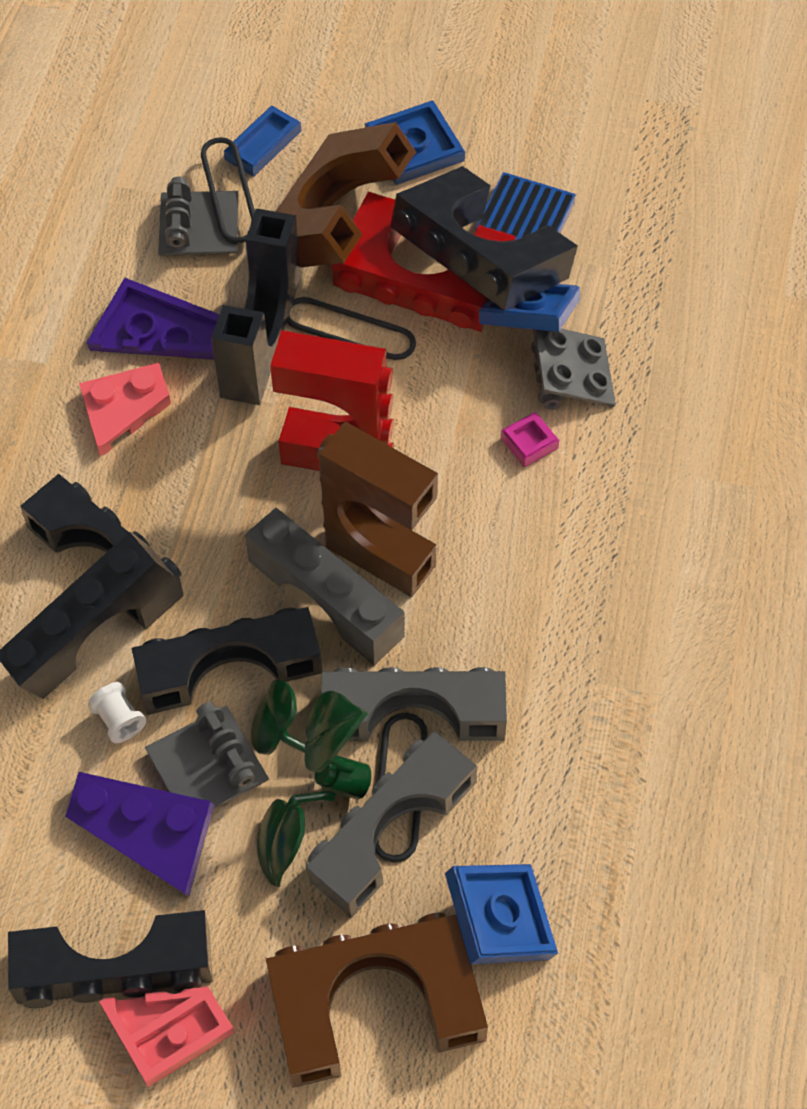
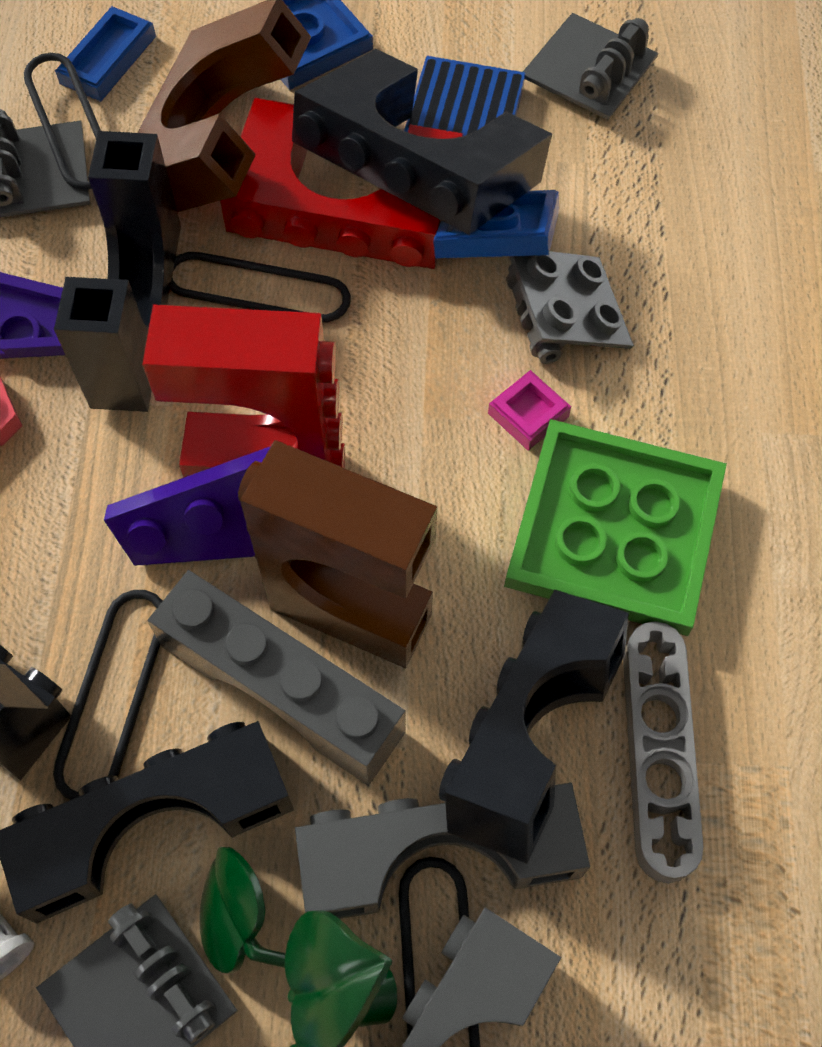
camera: 10 degrees left, 5 degrees up
(198, 572) = (86, 685): none -> black piece
(278, 478) = (186, 518): none -> dark purple wing
(458, 658) = (504, 783): none -> black arch
(574, 523) = (618, 525): none -> bright green plate
(574, 668) = (667, 748): none -> light grey beam
(629, 192) = (593, 63): none -> dark grey hinge

